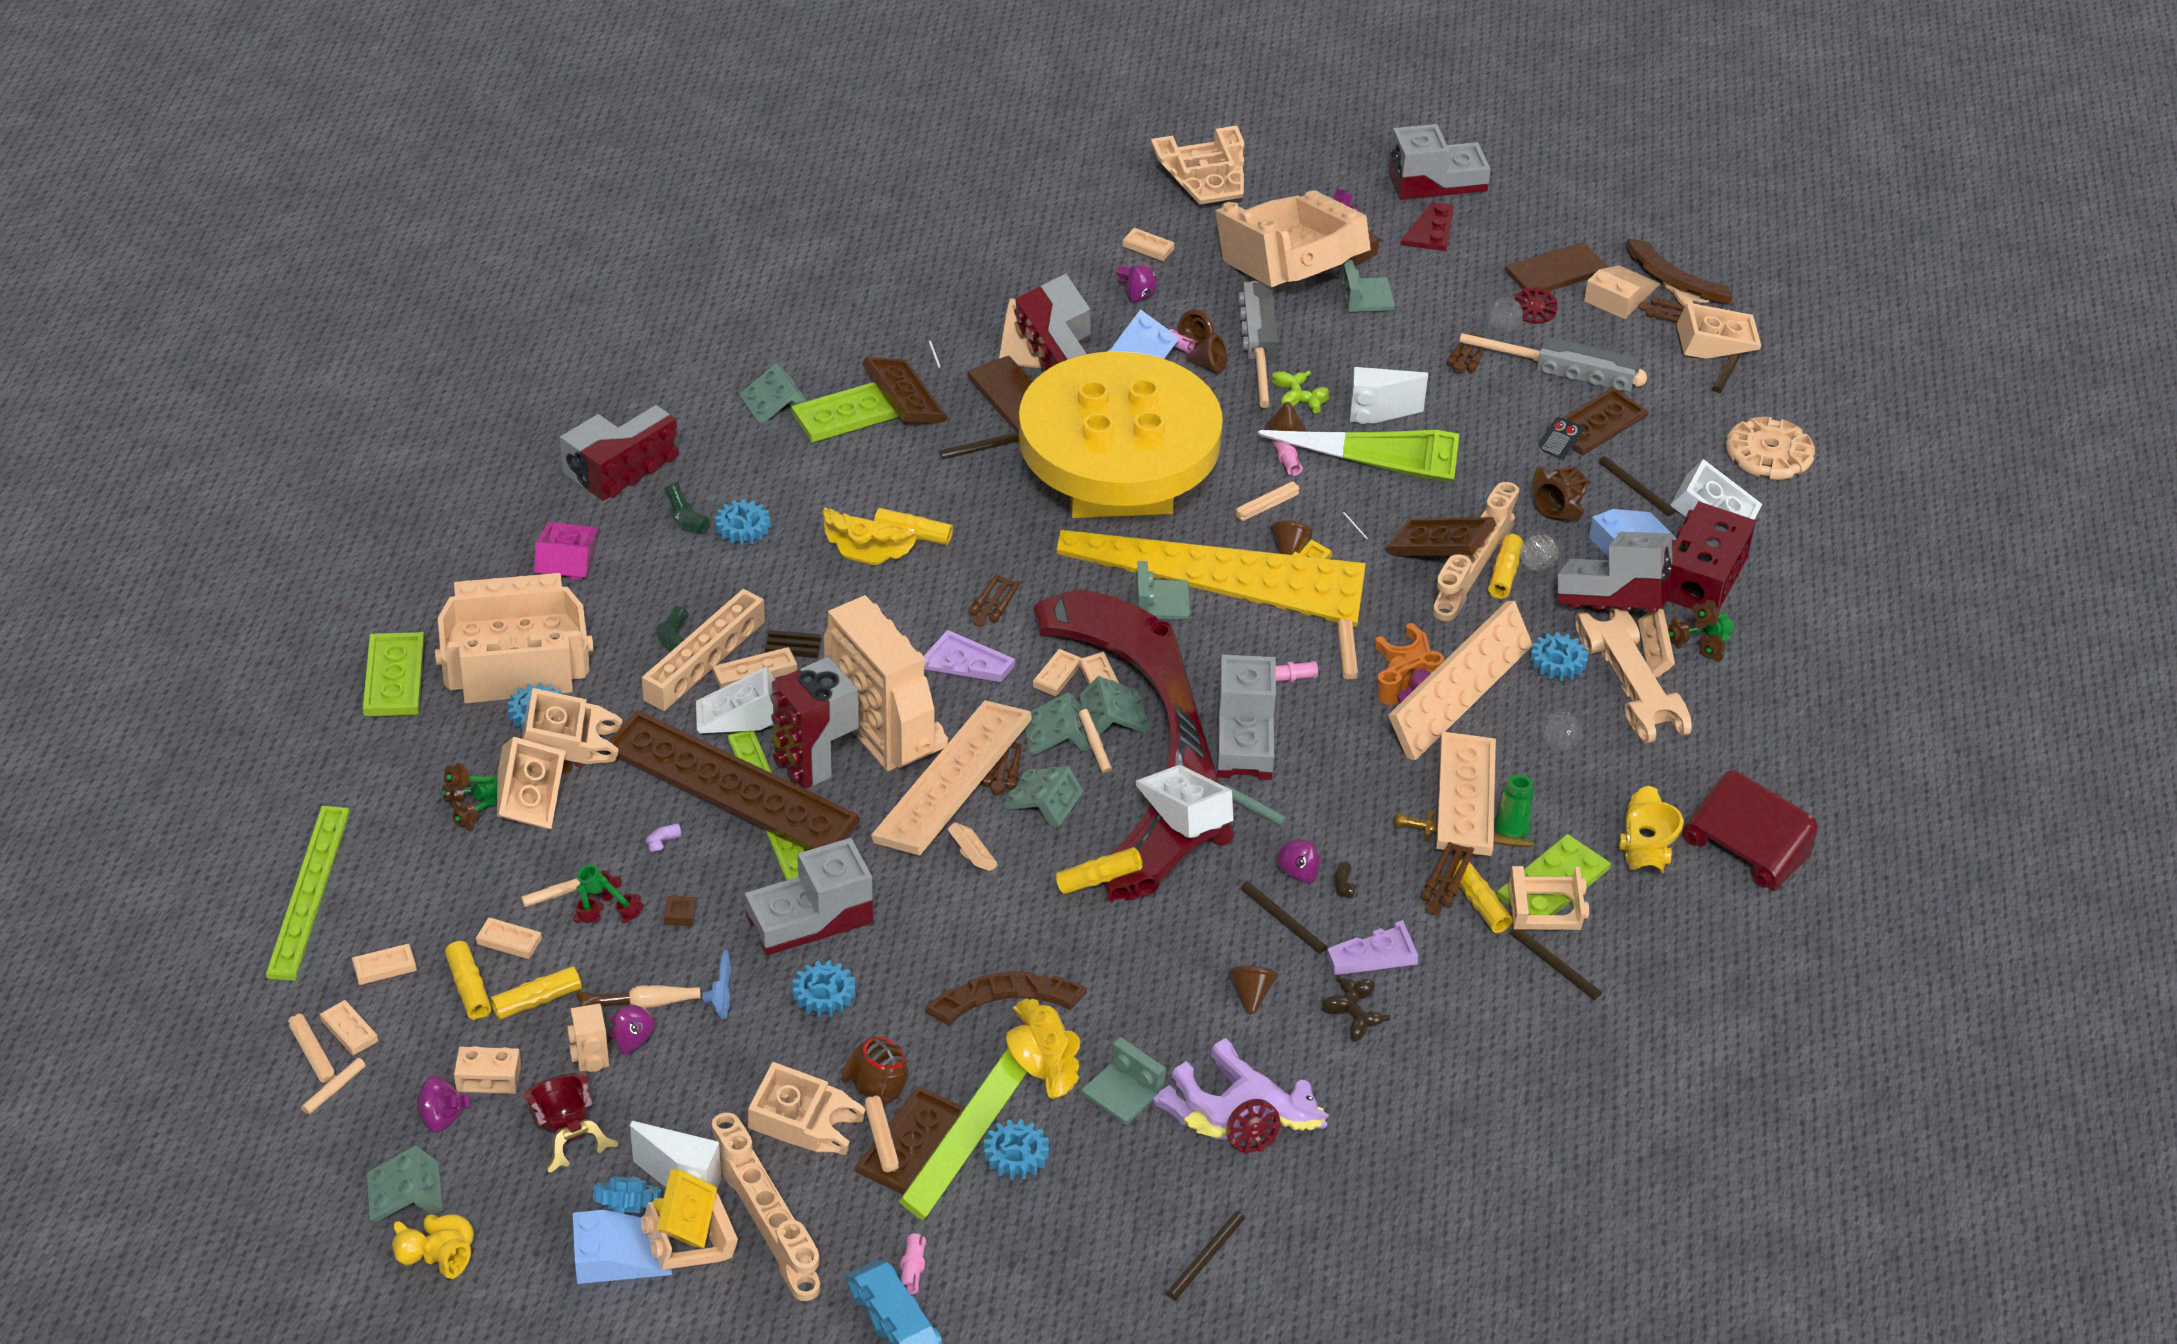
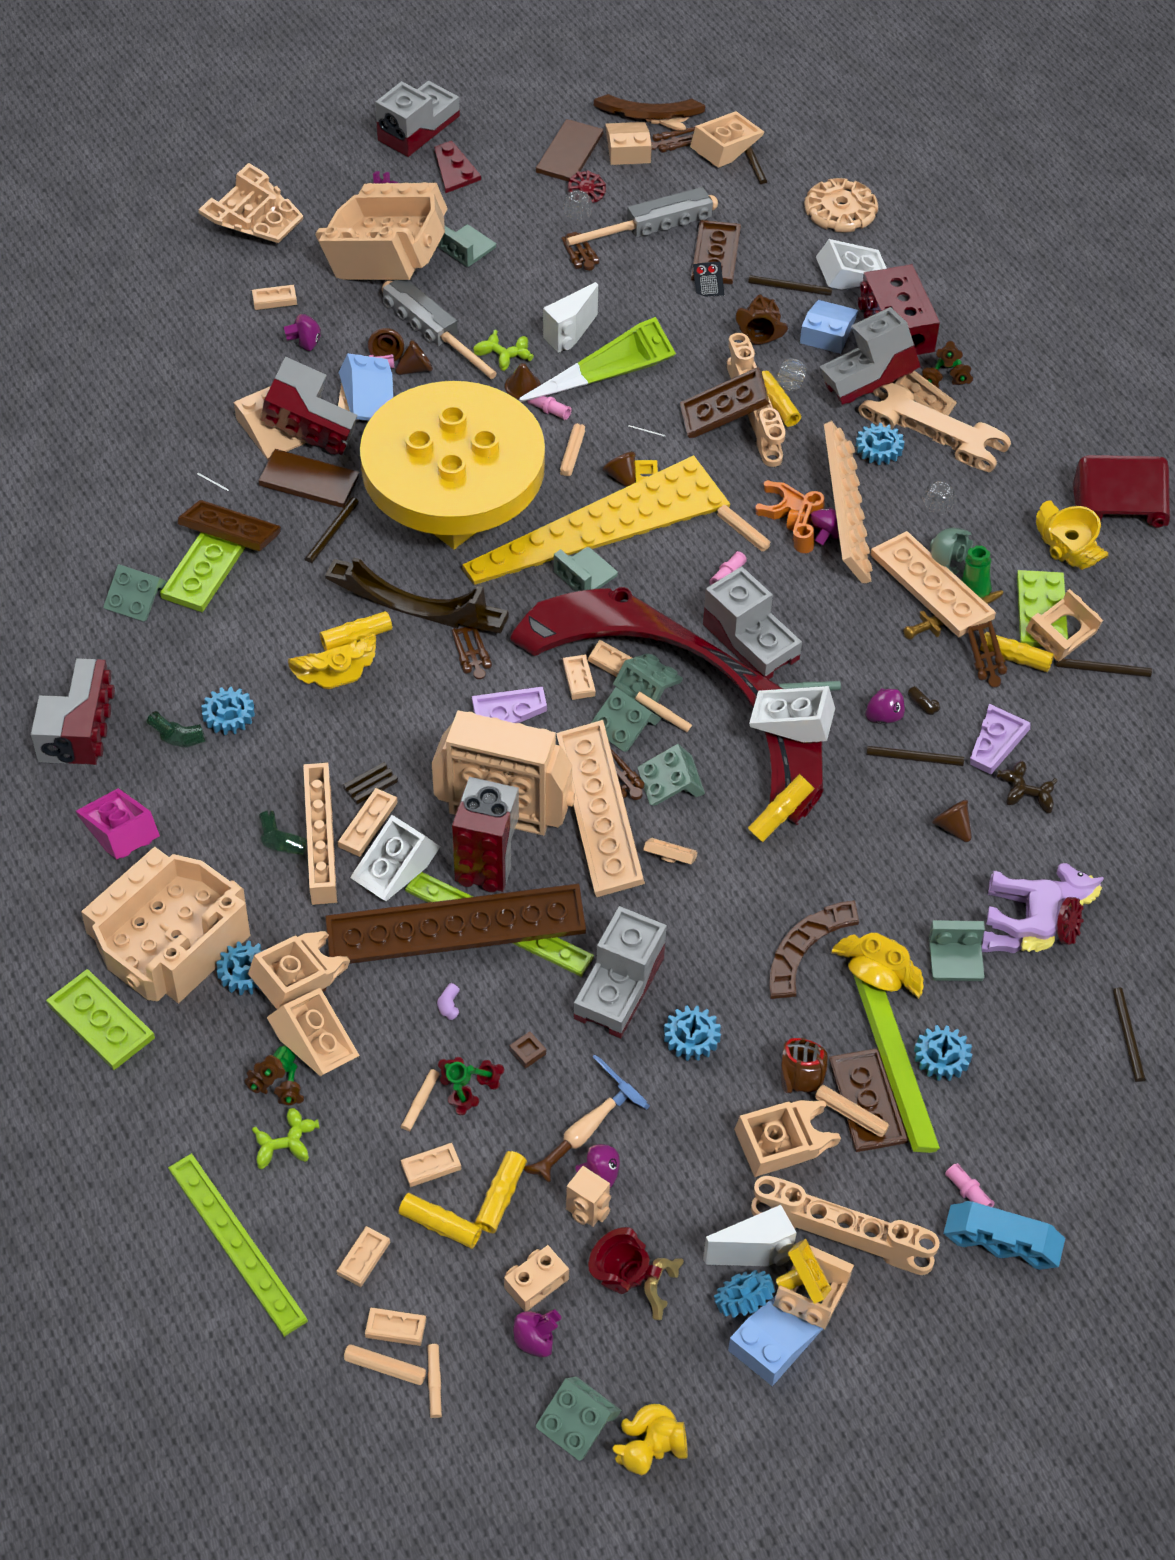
camera: 40 degrees left, 10 degrees up
(427, 851) = (292, 1140): none -> lime piece
(1015, 562) = (463, 610): none -> dark brown slope
(1518, 763) = (951, 544): none -> sand green cylinder

